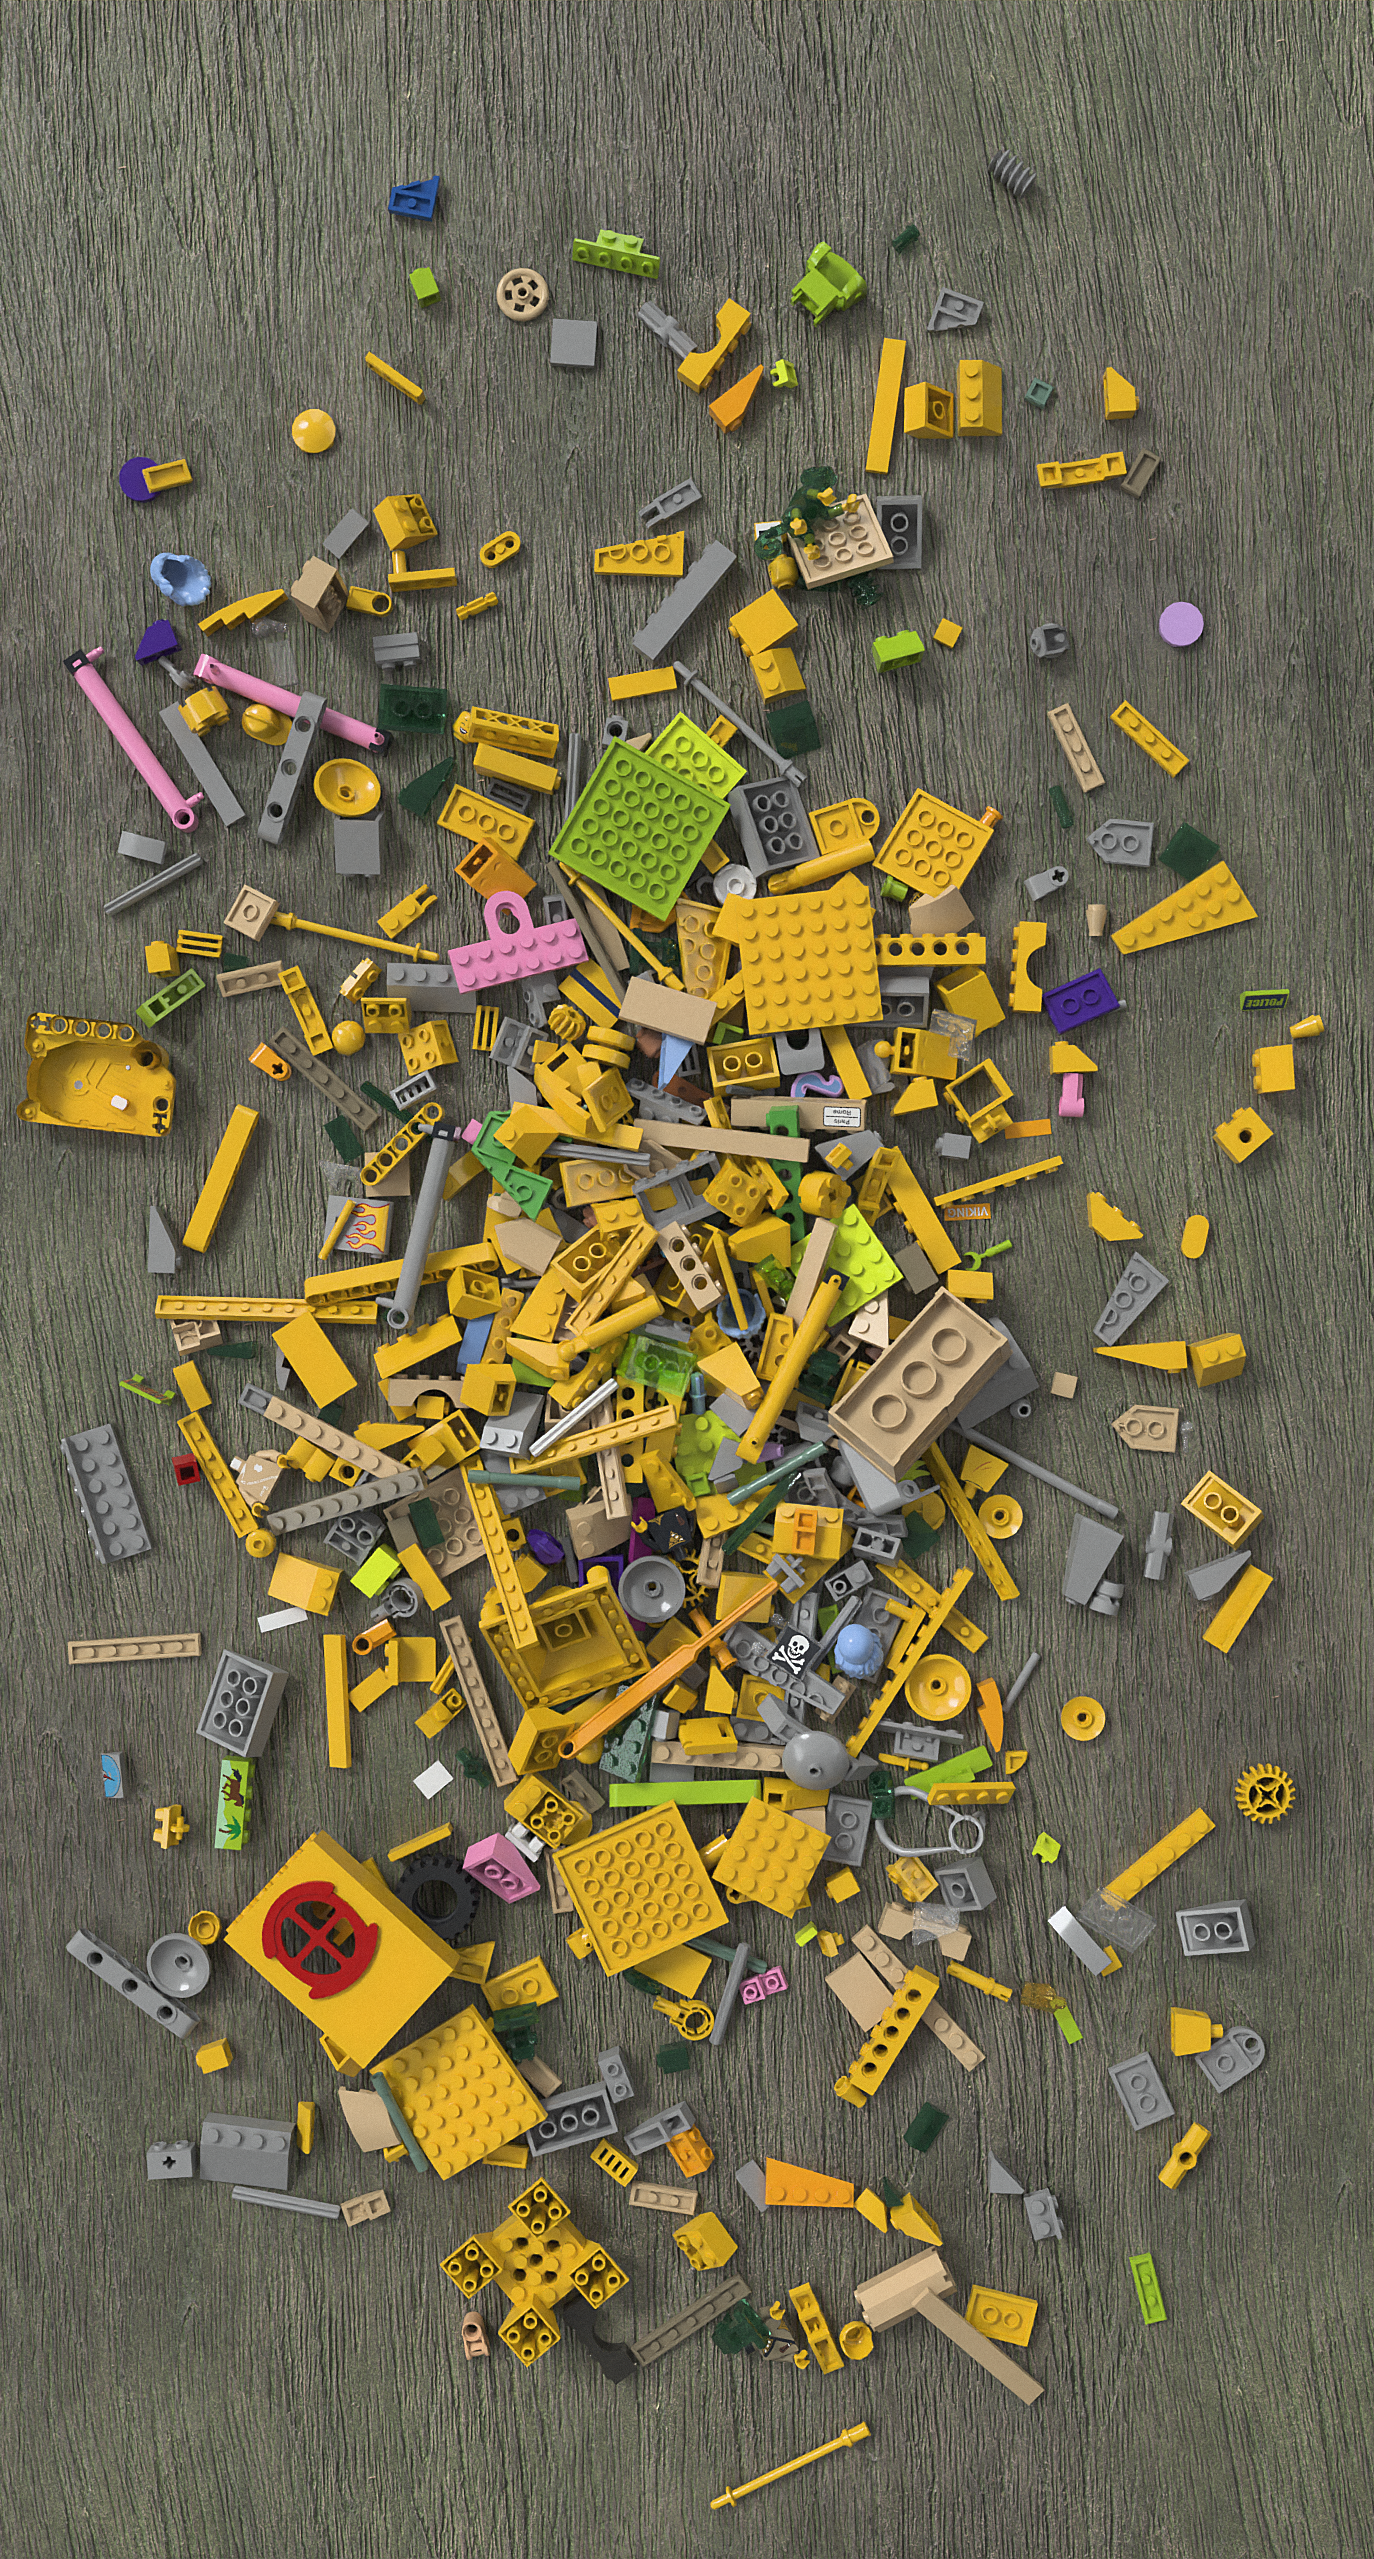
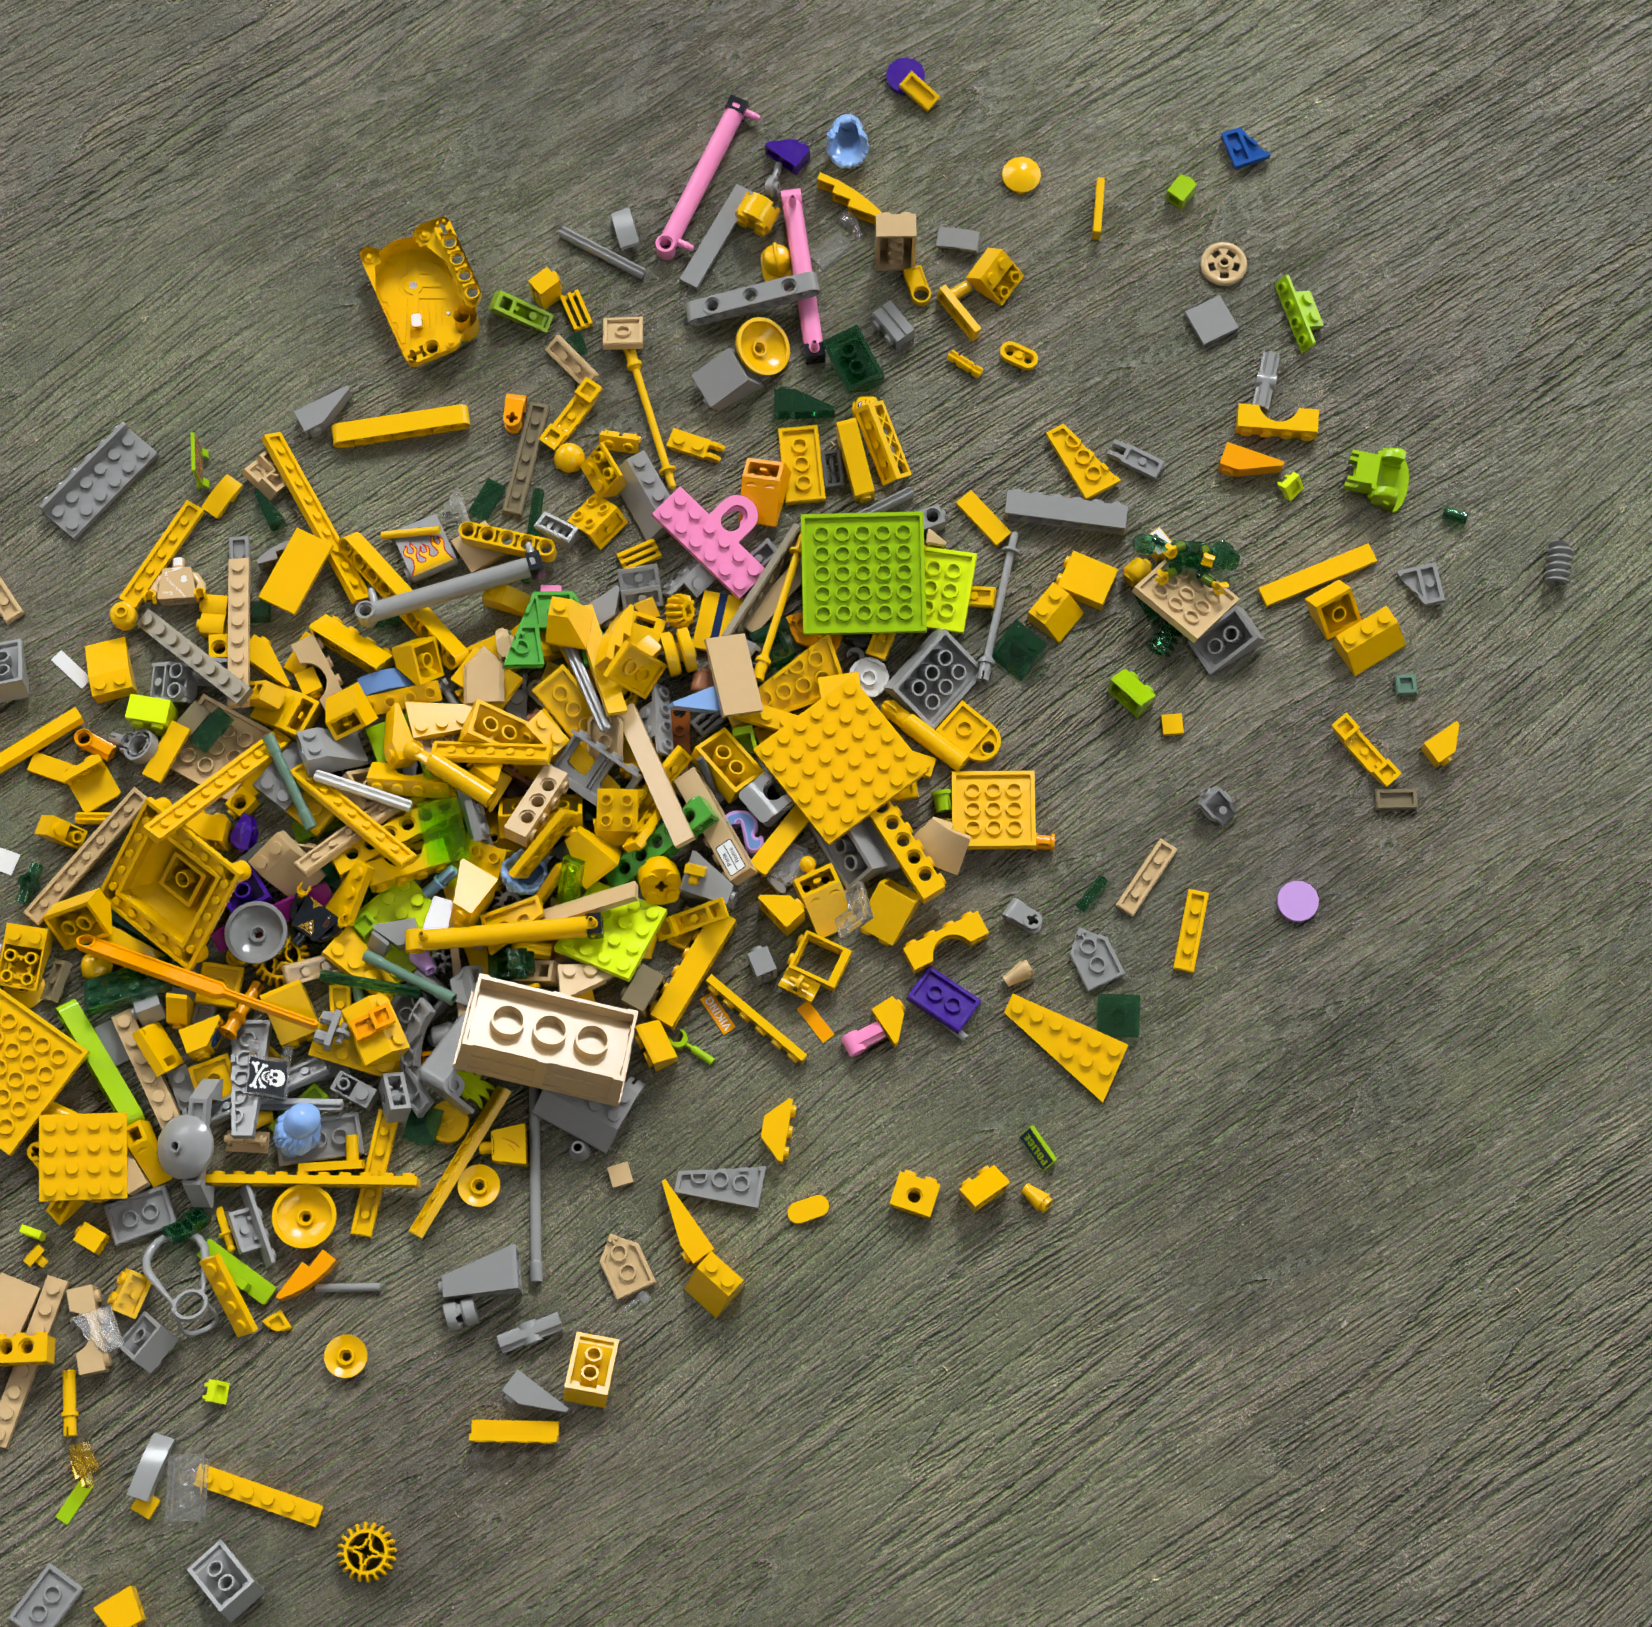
camera: 60 degrees right, 15 degrees down
(185, 1469) = (151, 526): red brick -> none

